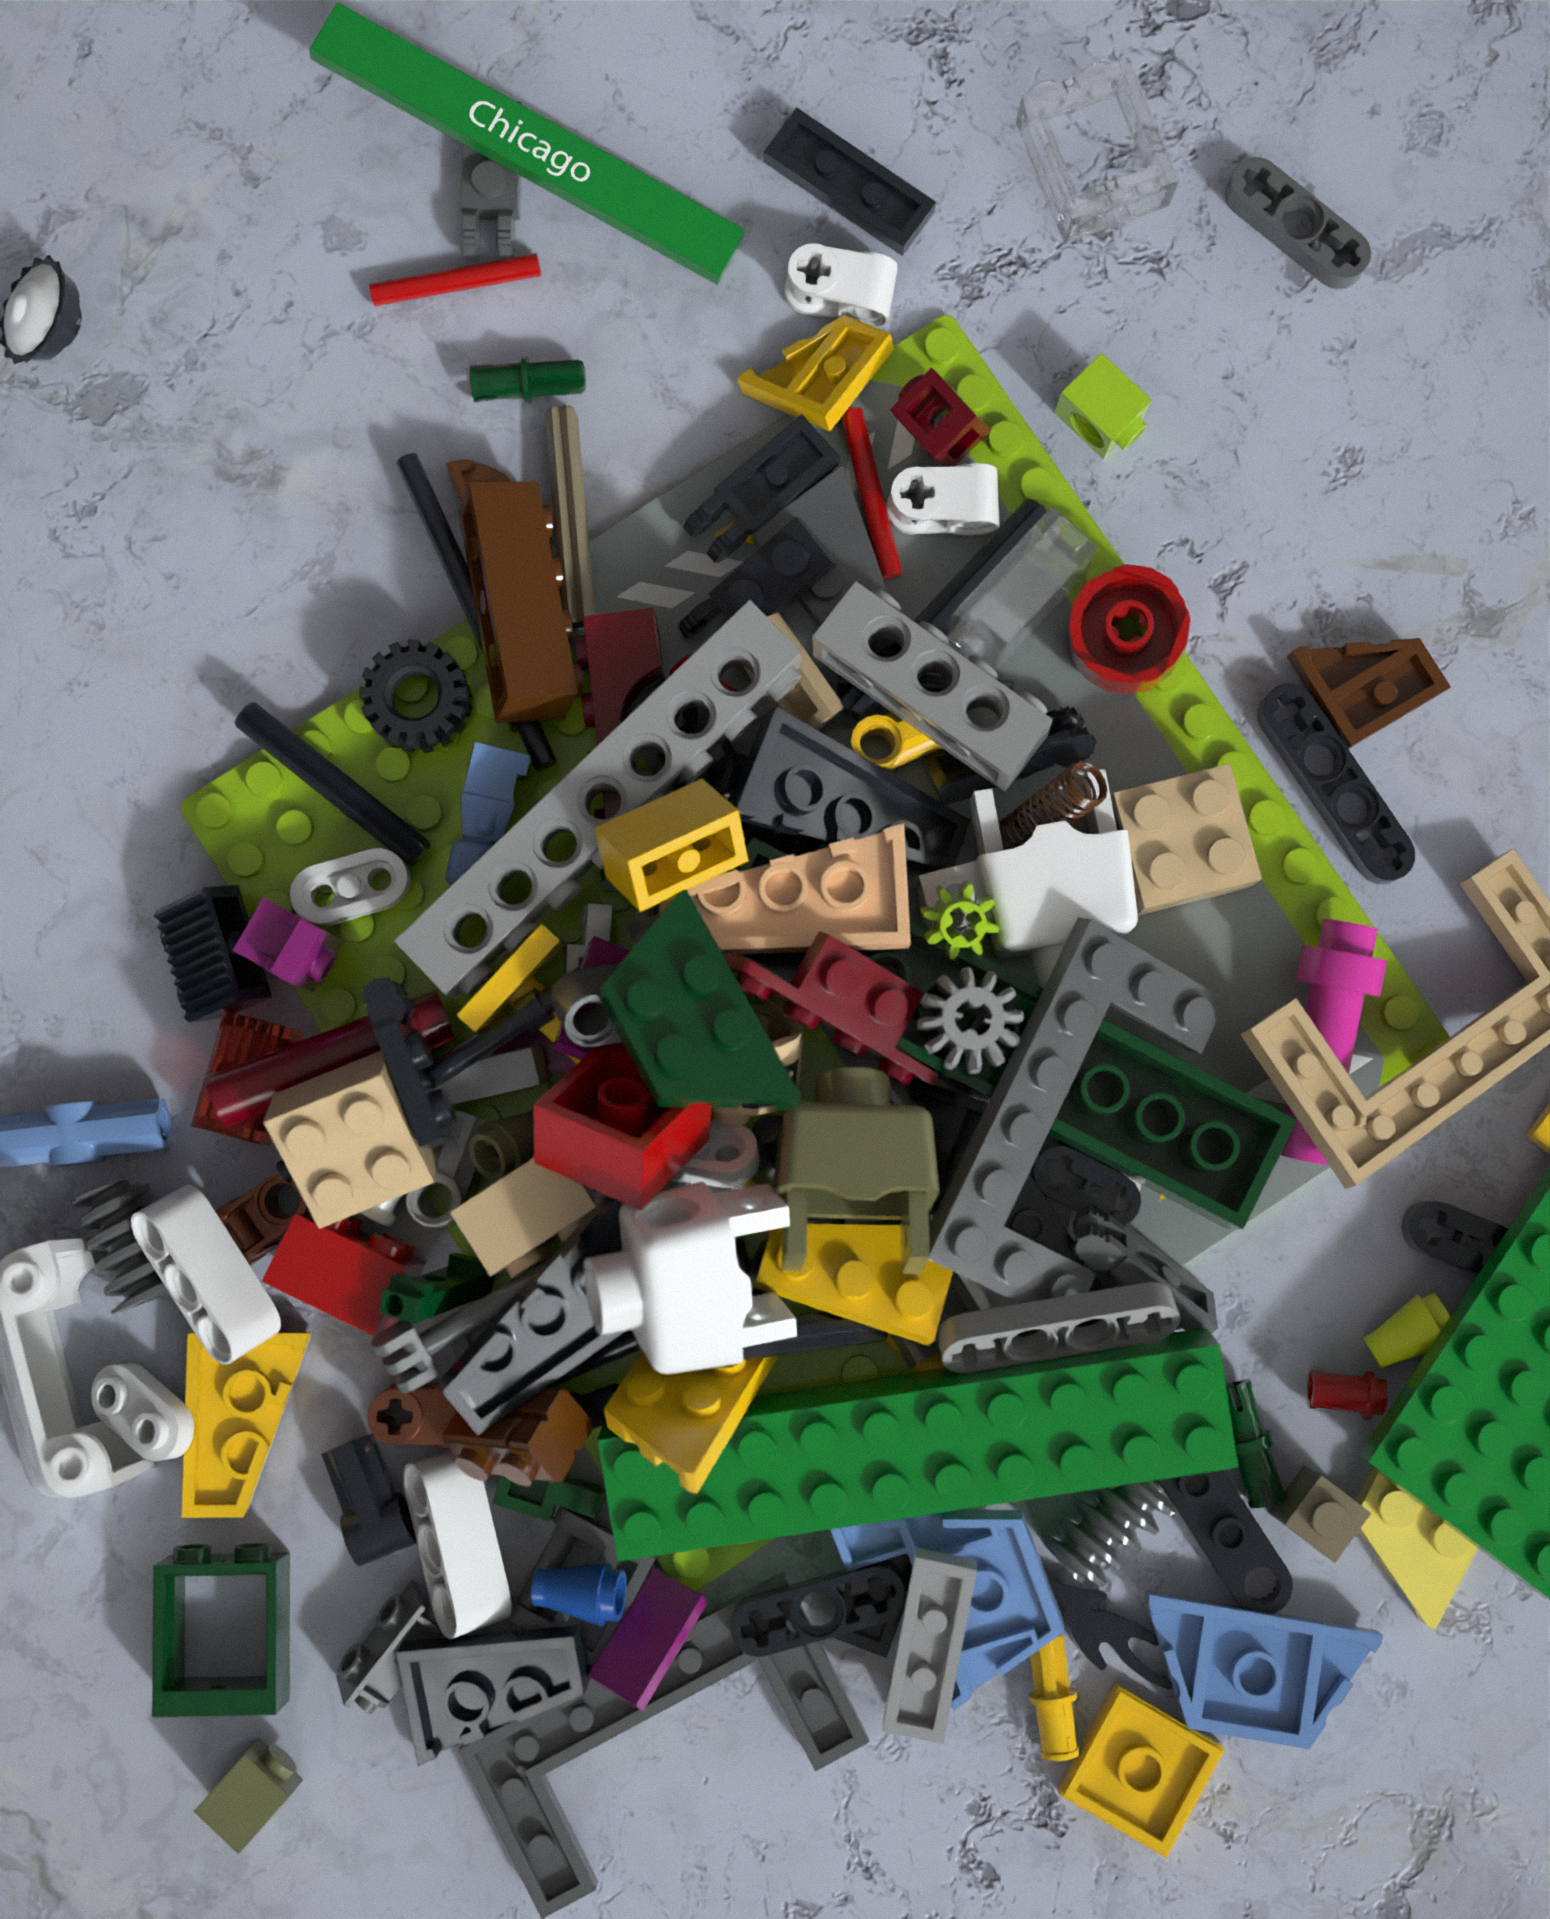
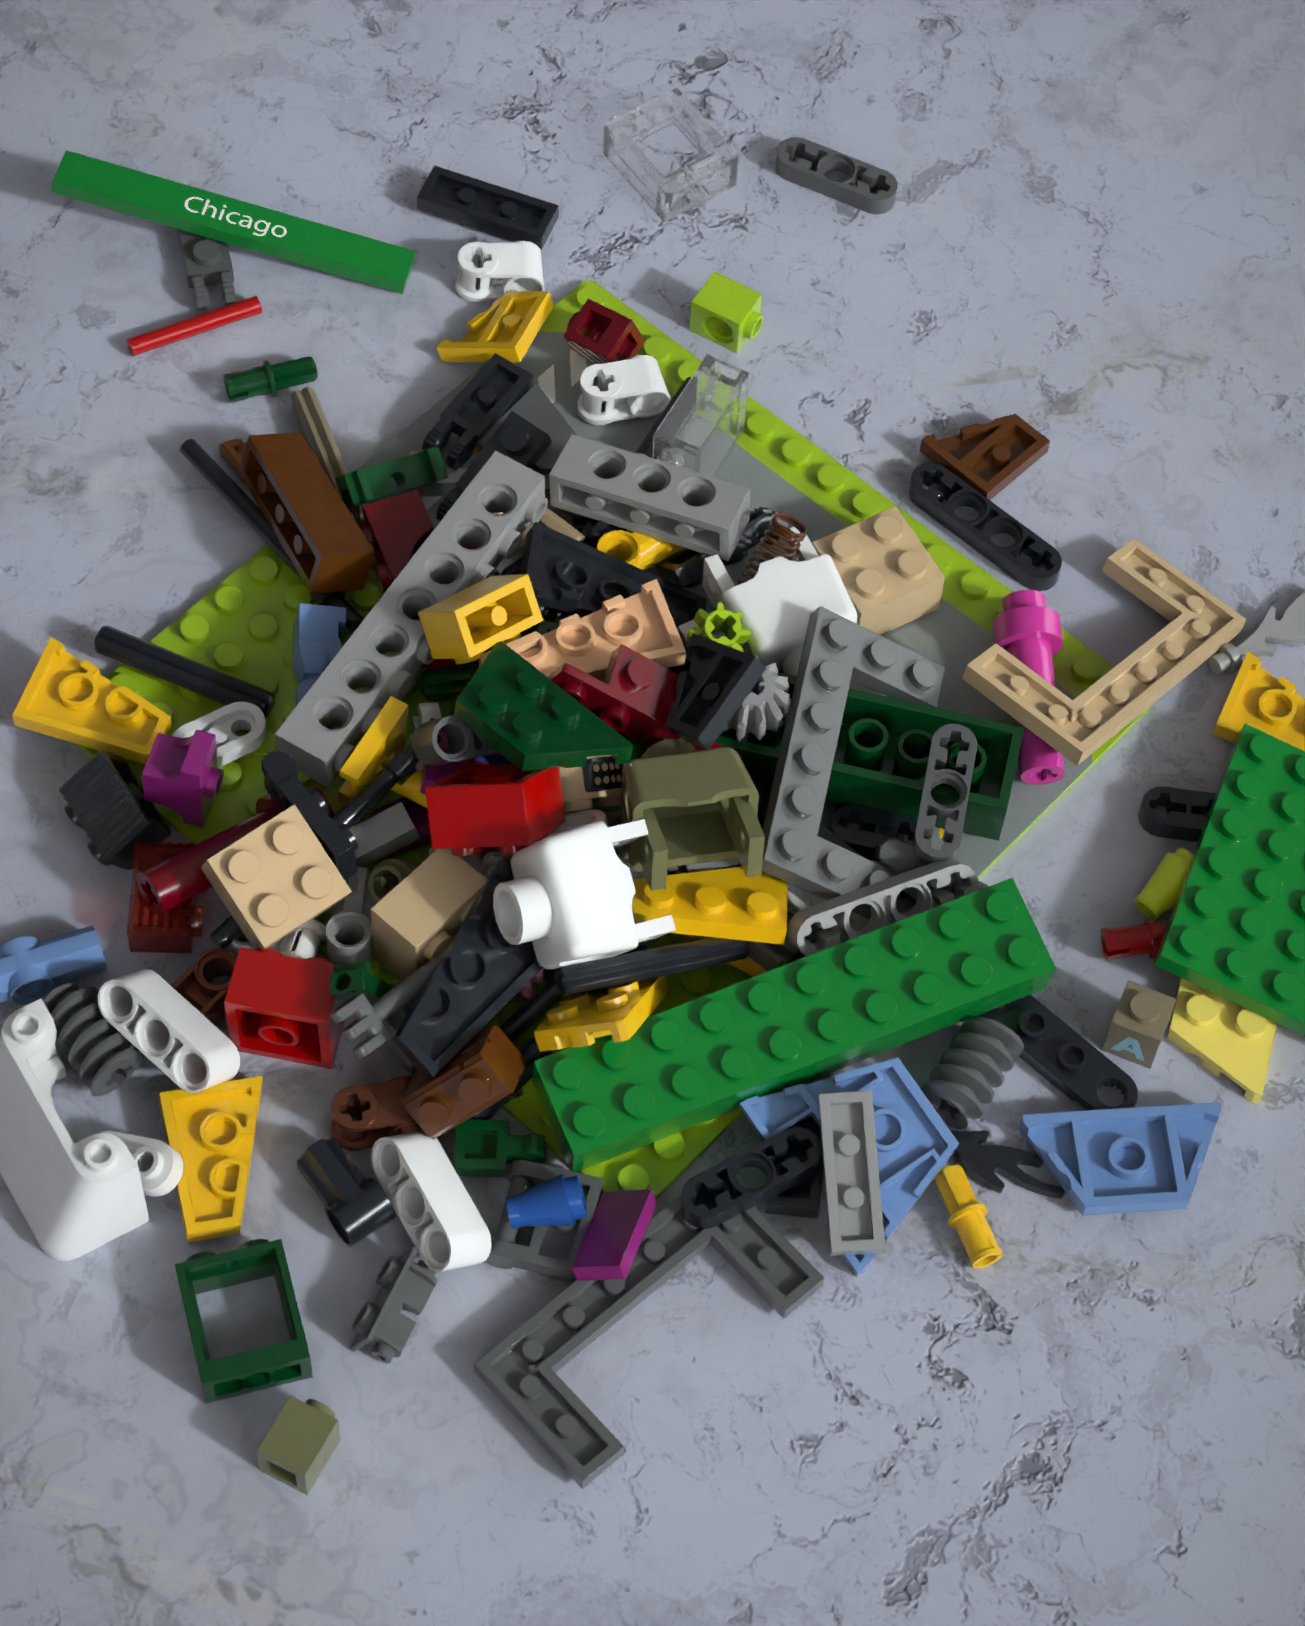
camera: 20 degrees left, 25 degrees down
(210, 810) = (85, 708): none -> yellow wing
(391, 672) = (234, 574): black tyre -> none
(482, 1681) = (484, 1302): wing -> none
(607, 575) = (375, 481): none -> dark green piece
(871, 493) = (558, 392): red bar -> none
(920, 1027) = (711, 690): none -> black wing
(1140, 1236) = (937, 760): none -> dark grey beam
(1140, 1769) = (1058, 1260): yellow tile -> none
(1161, 619) = (790, 440): red brick -> none
(1253, 1447) = (1071, 997): dark green pin -> none

